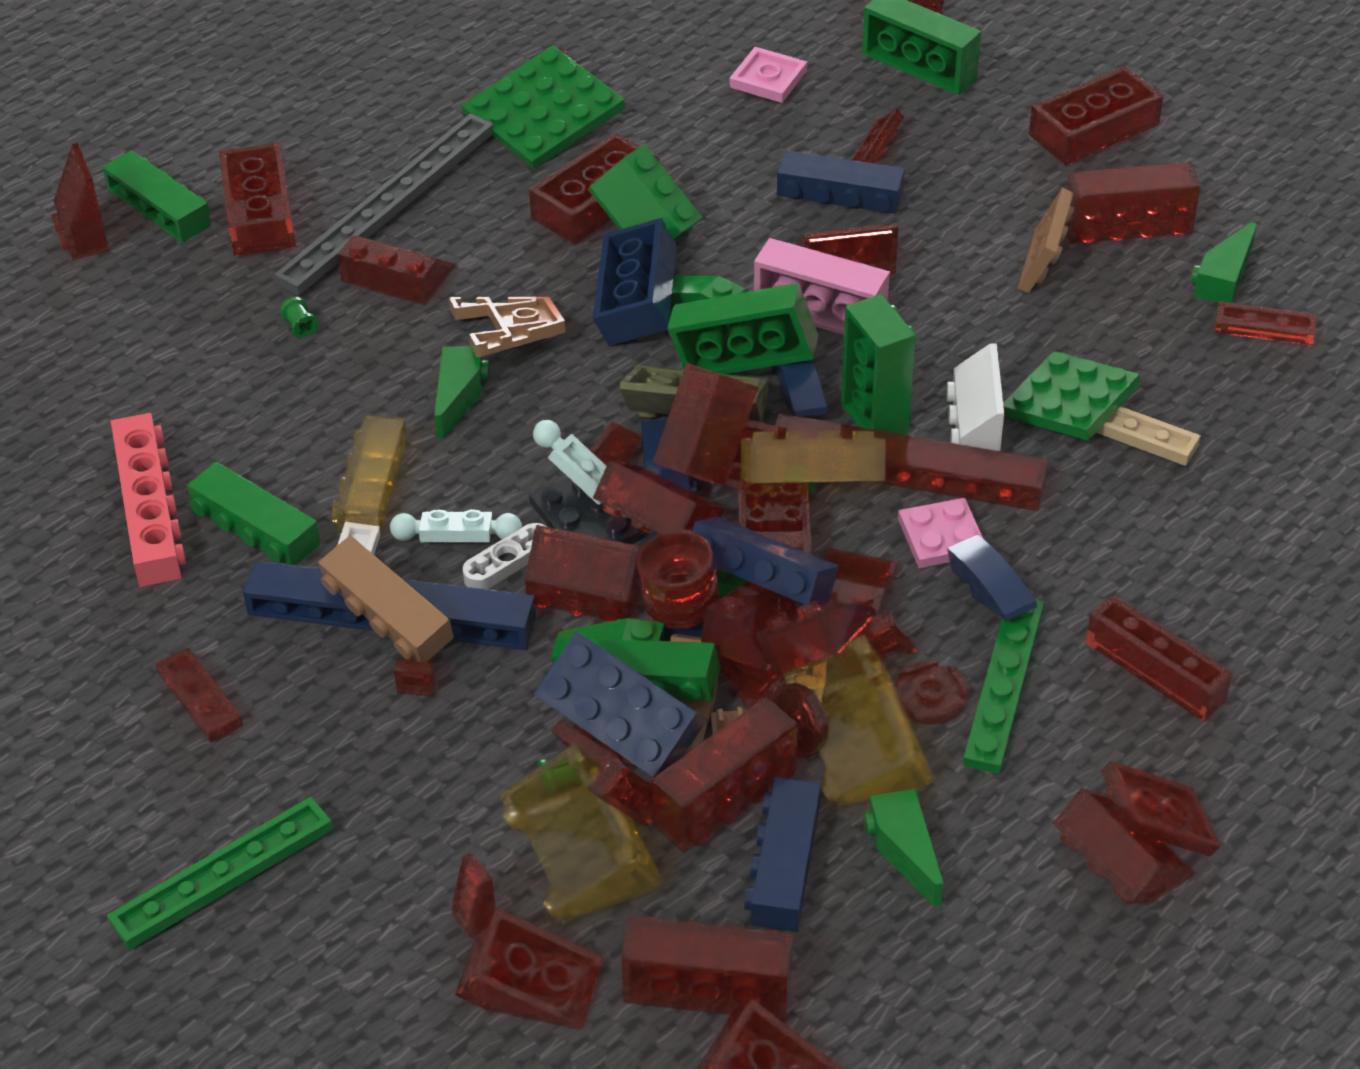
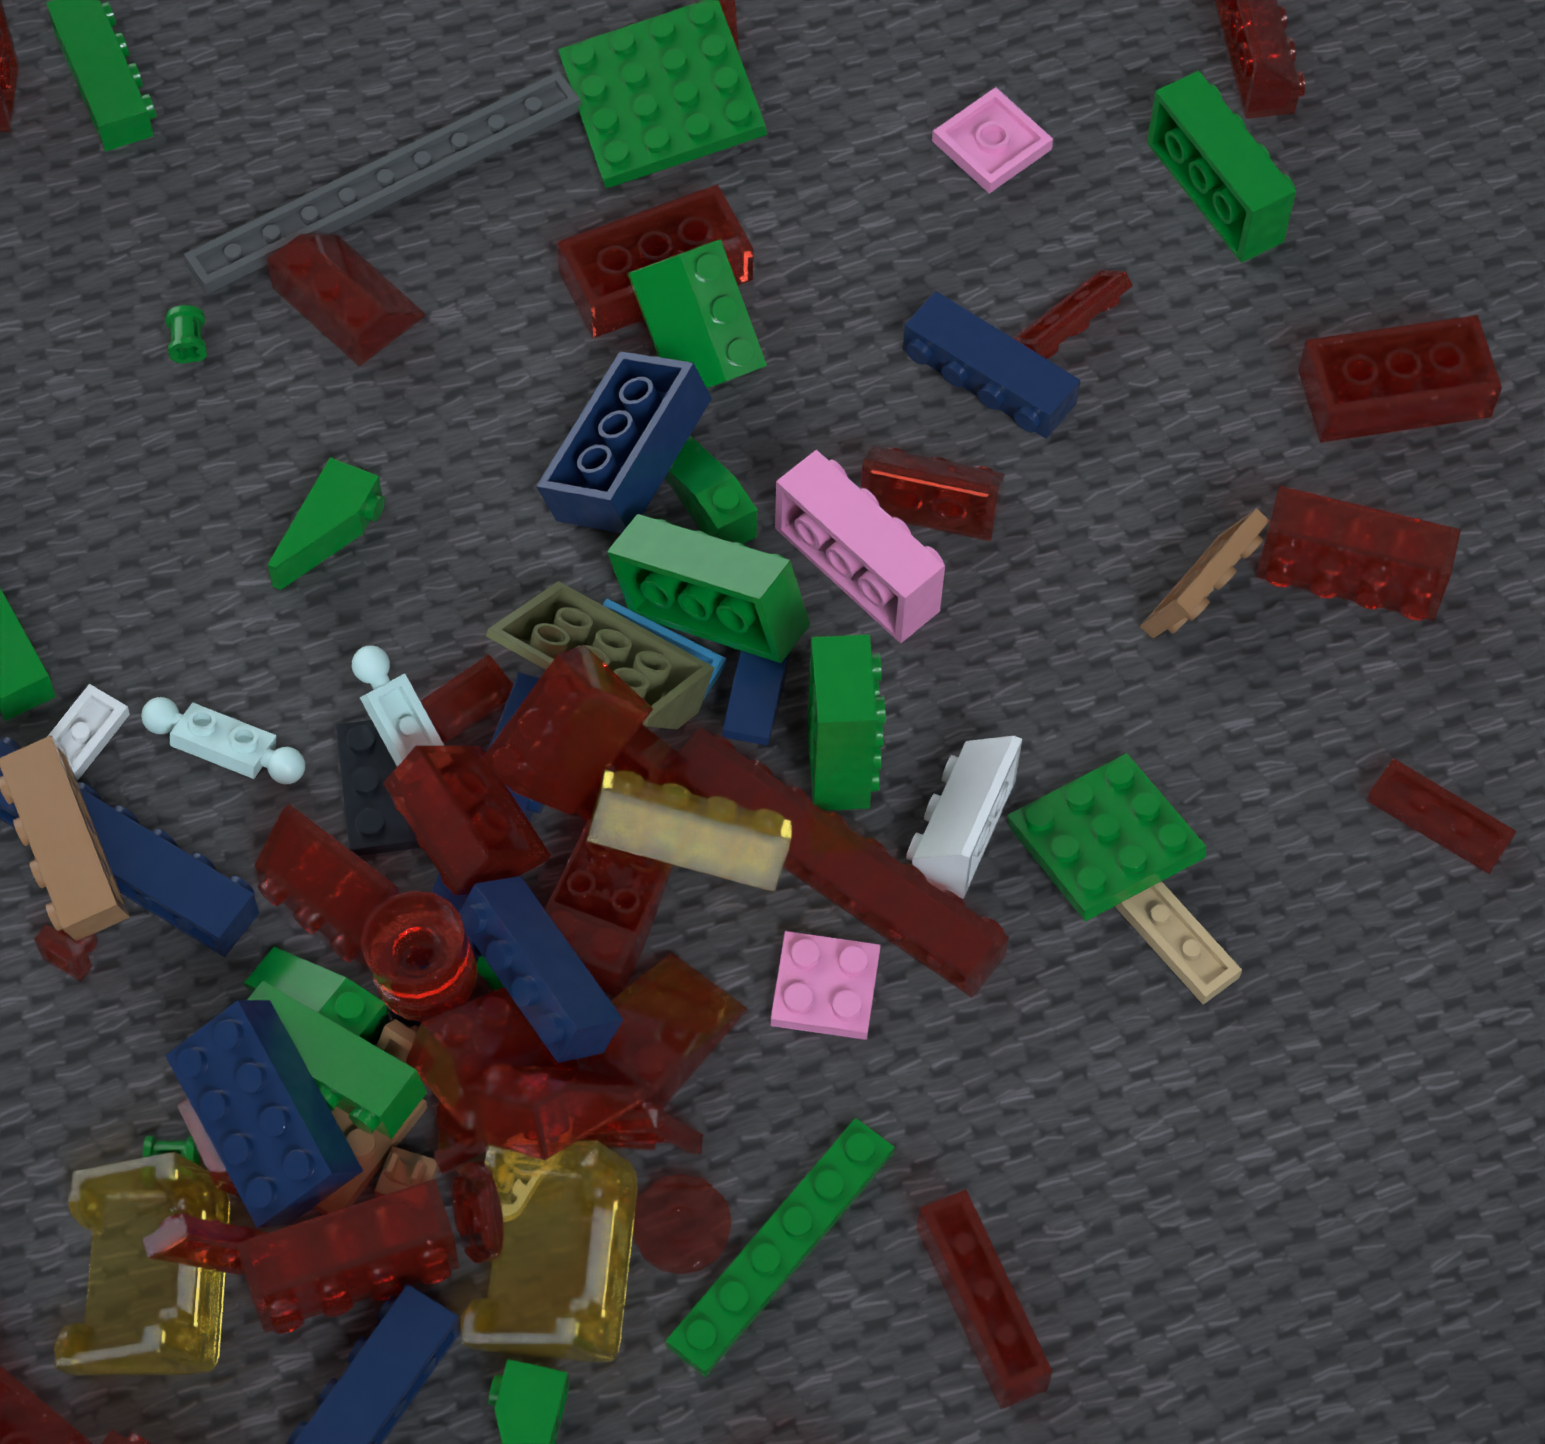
camera: 20 degrees right, 15 degrees up
(256, 199) = (216, 123): clear red brick -> none
(371, 472) = (156, 621): clear yellow brick -> none
(499, 569) = (248, 798): white beam -> none
(516, 322) = (456, 450): medium nougat wing -> none
(990, 578) = (837, 1091): dark blue slope -> none
(1224, 266) = (1437, 701): green slope -> none

